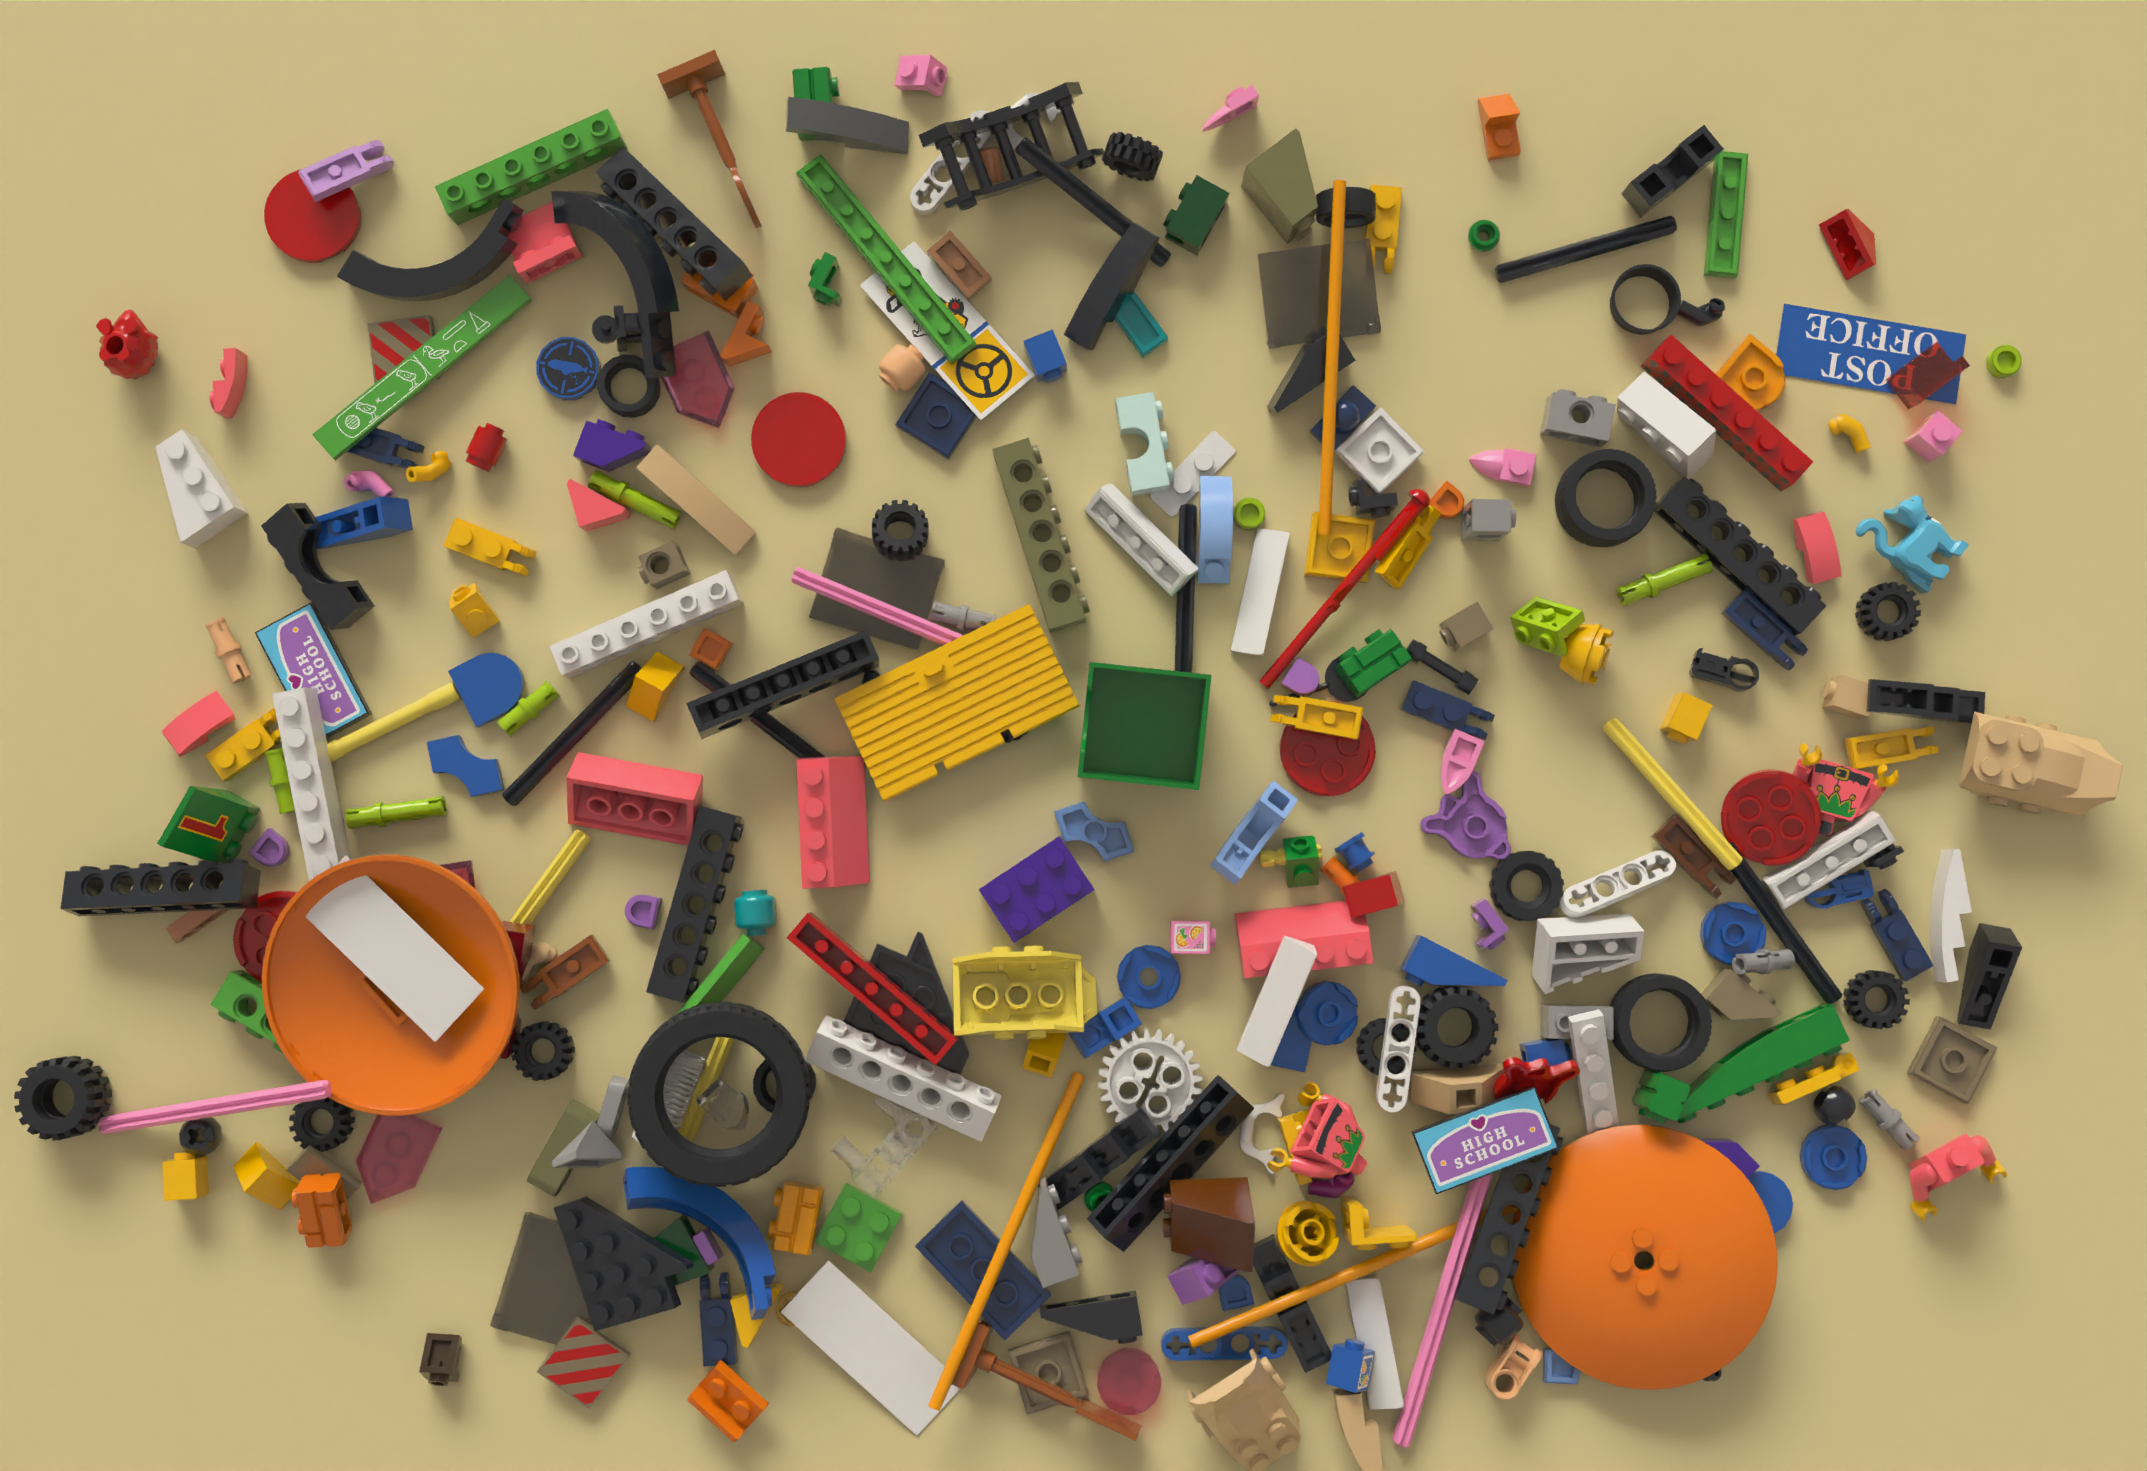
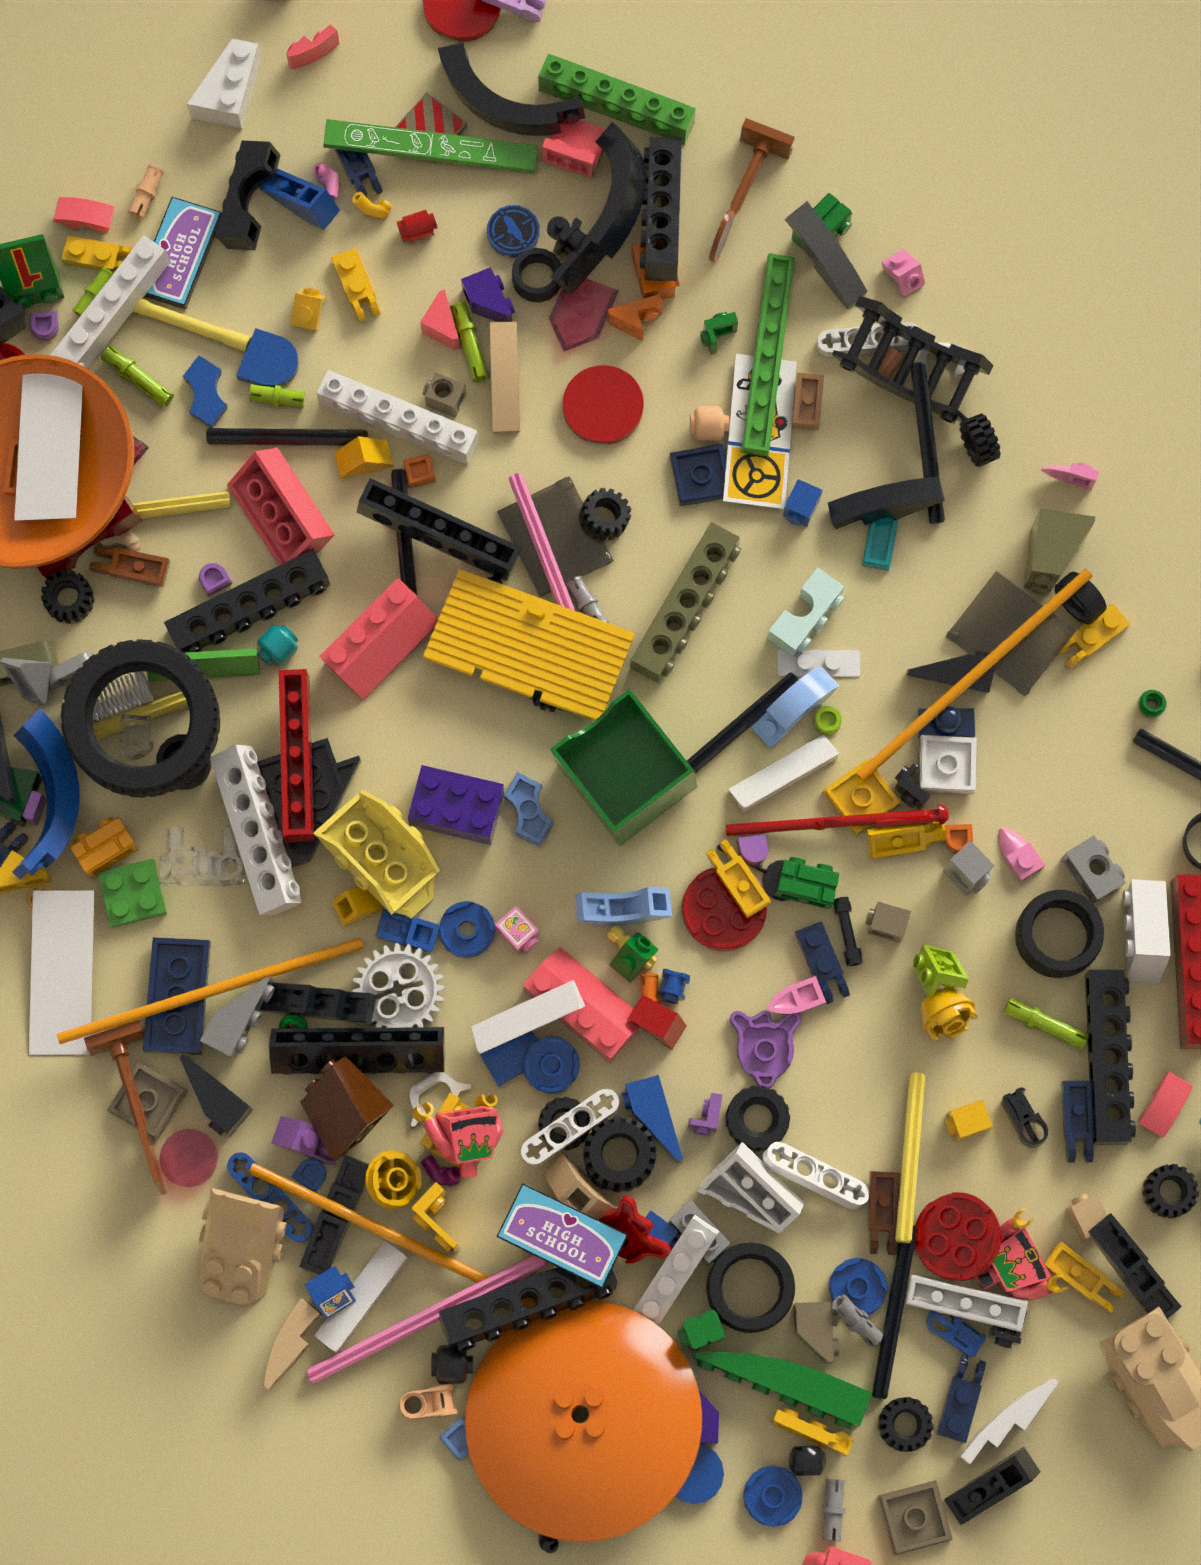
camera: 45 degrees right, 10 degrees down
(1140, 539) = (744, 666): white slope -> none
(1196, 214) = (983, 513): dark green brick -> none

